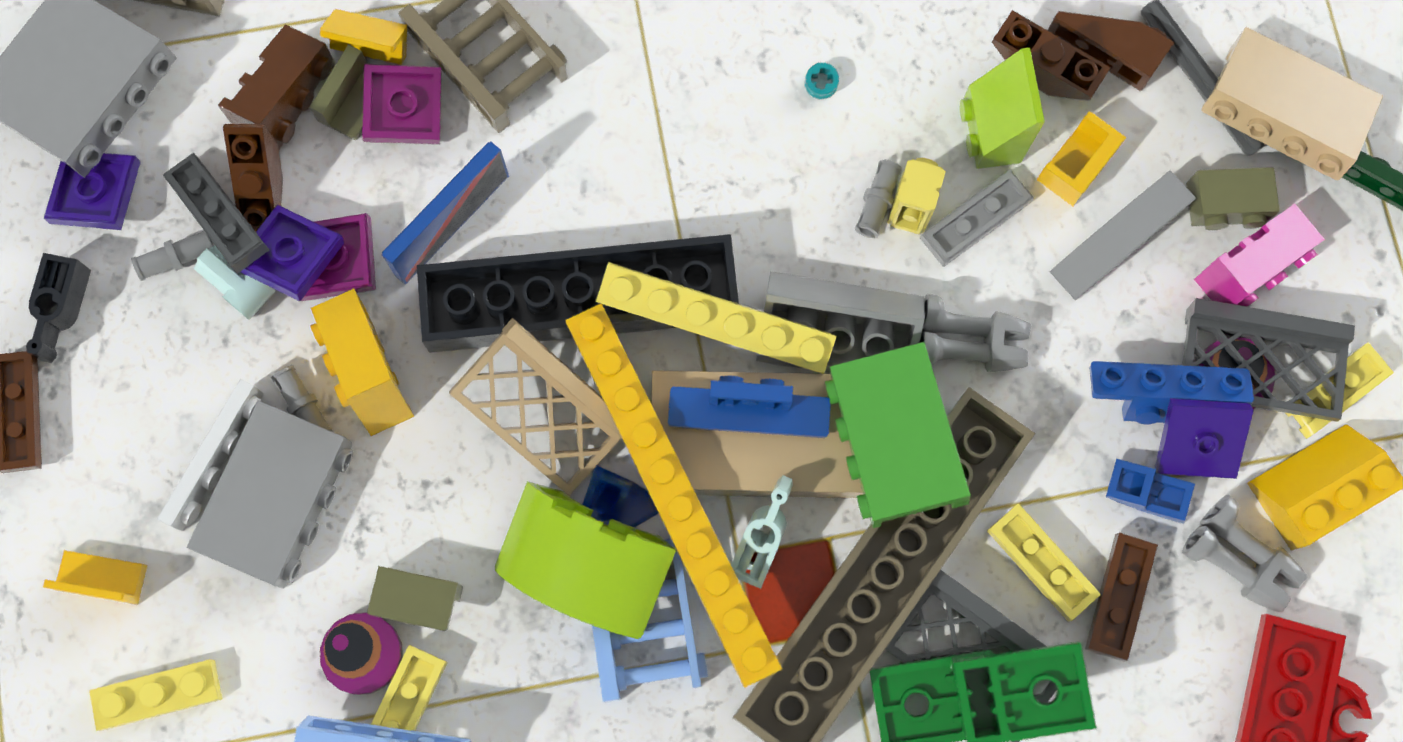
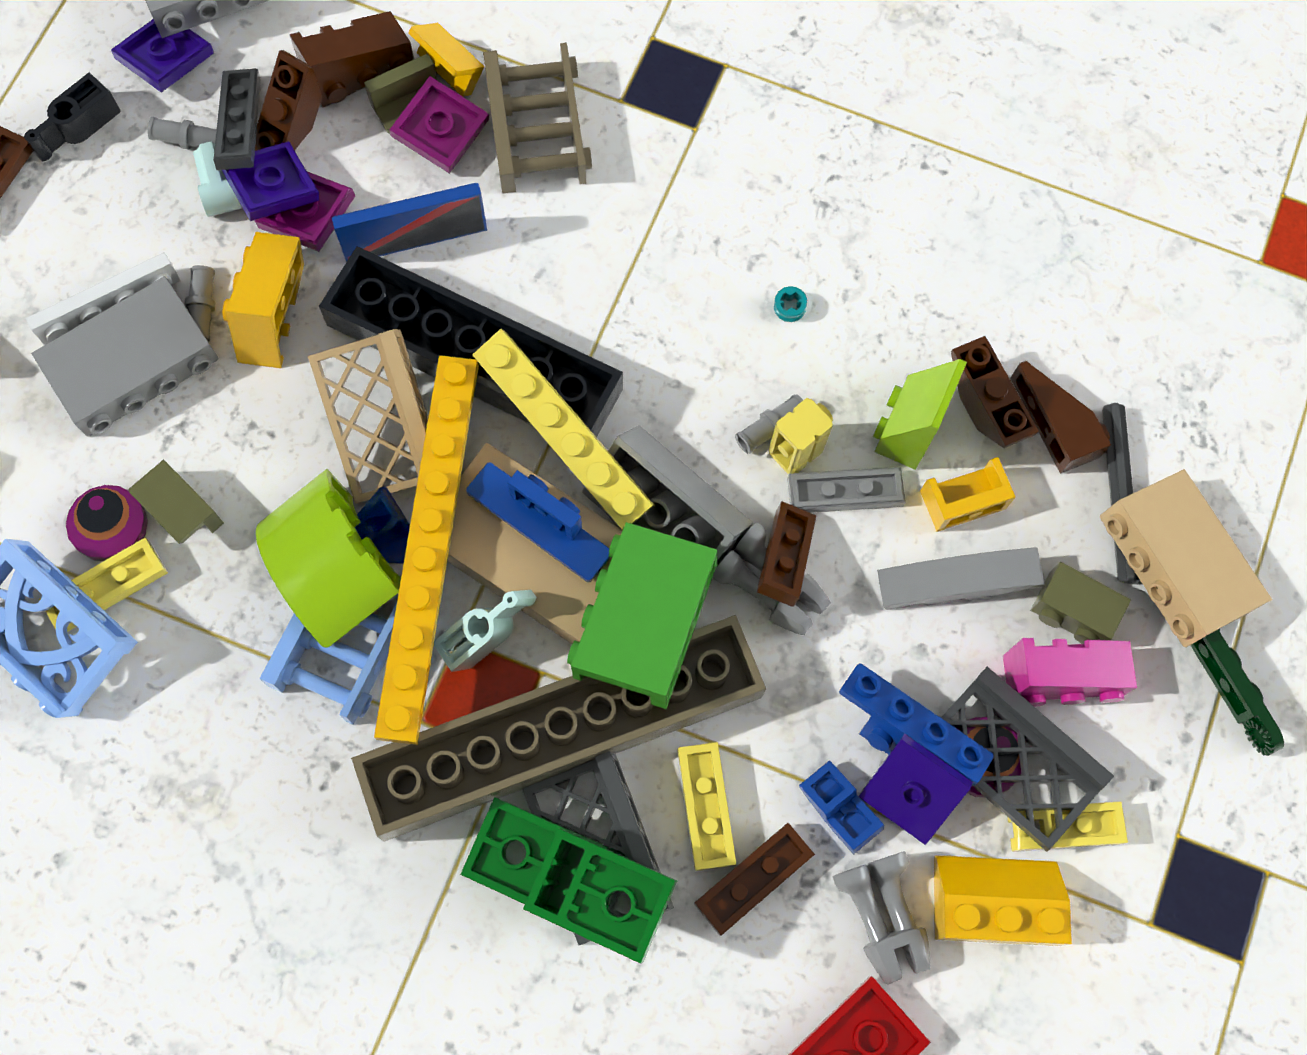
camera: 30 degrees right, 5 degrees down
(972, 306) = (787, 554): none -> reddish brown plate

